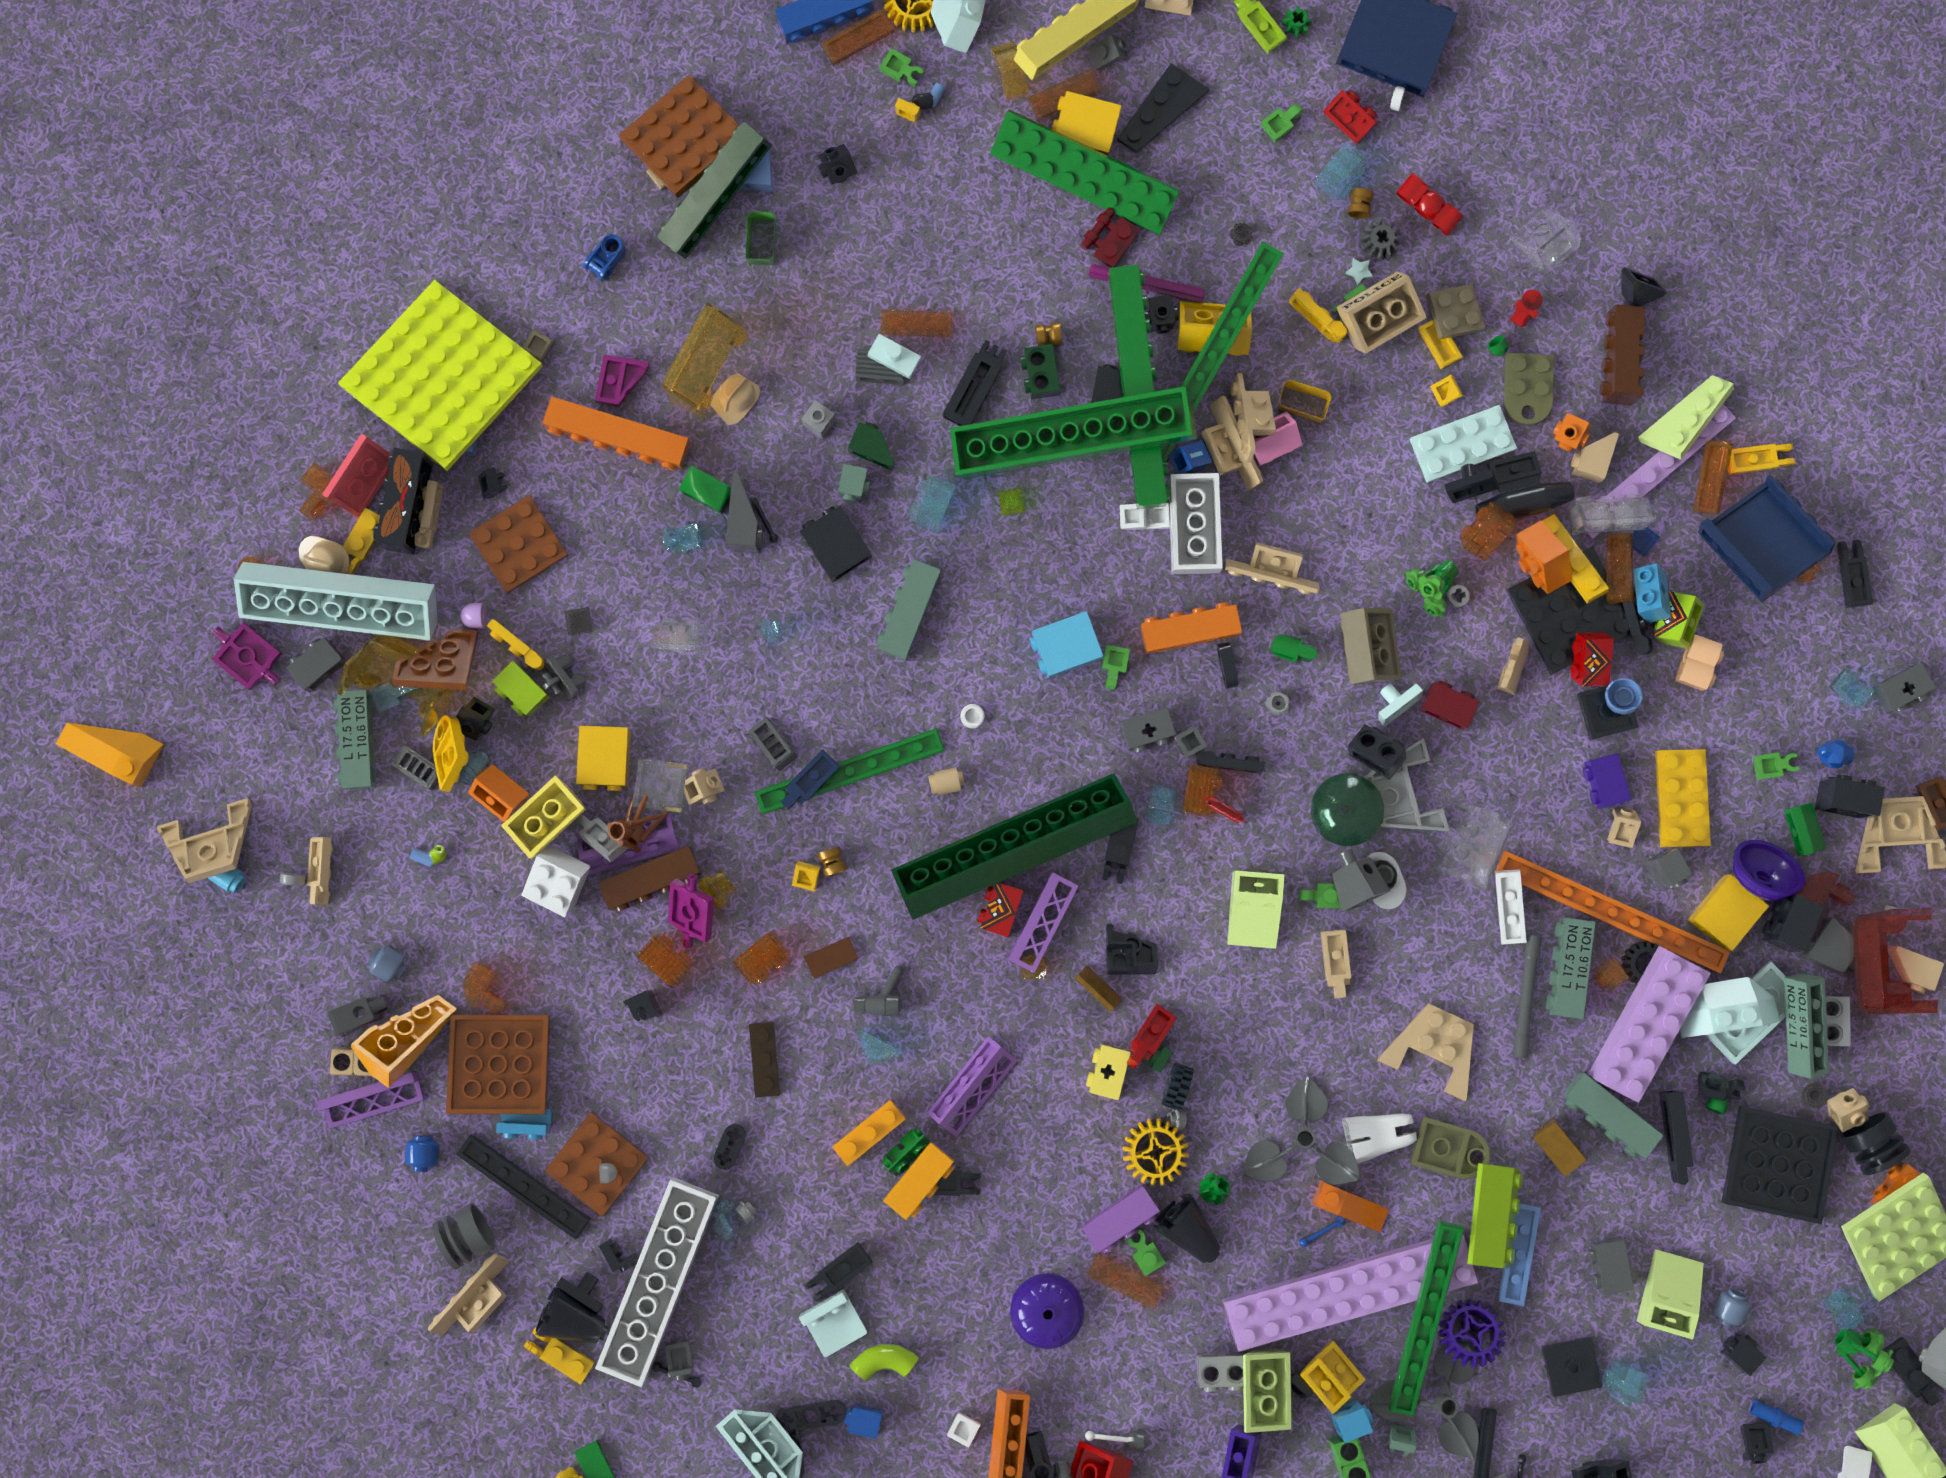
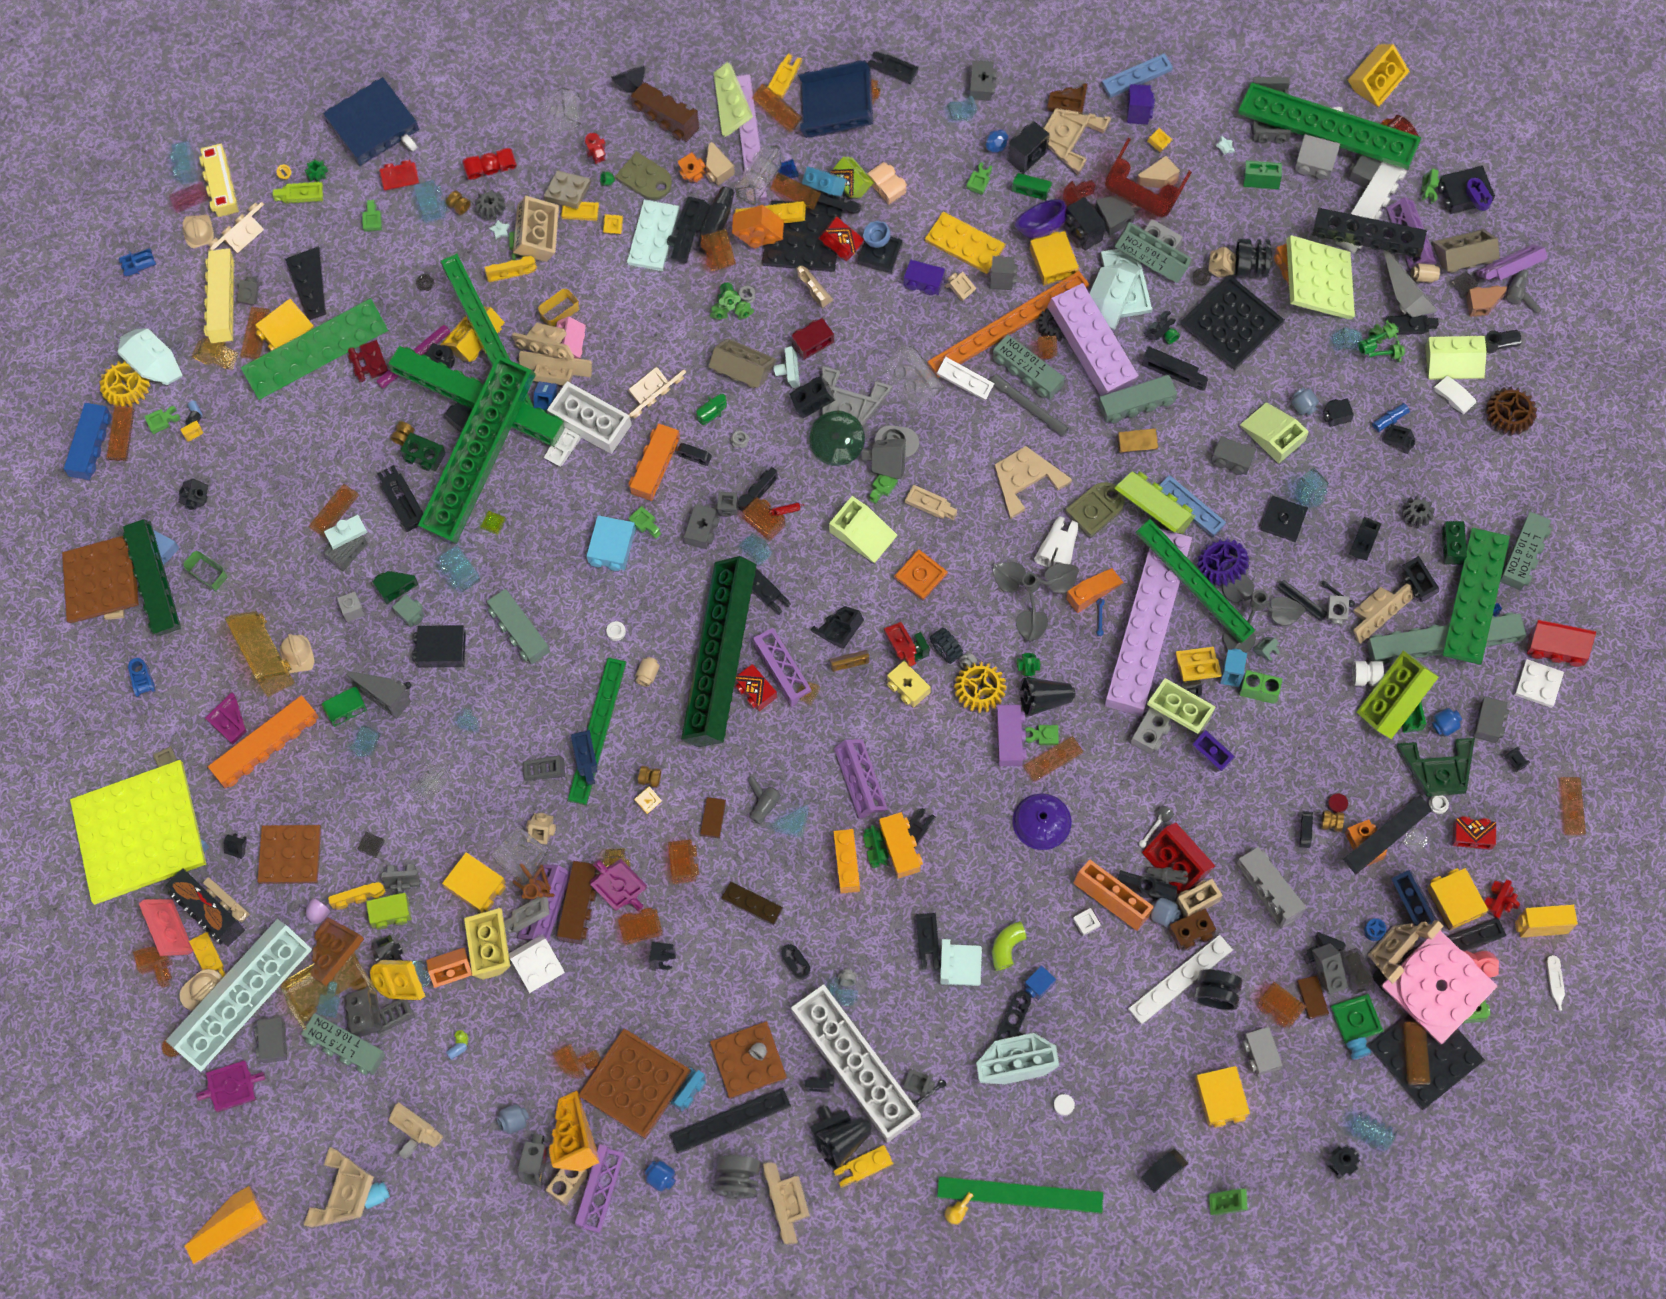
camera: 55 degrees left, 15 degrees down
(398, 738) = (363, 1012): none -> flat silver brick
(1245, 1004) = (920, 574): none -> orange plate

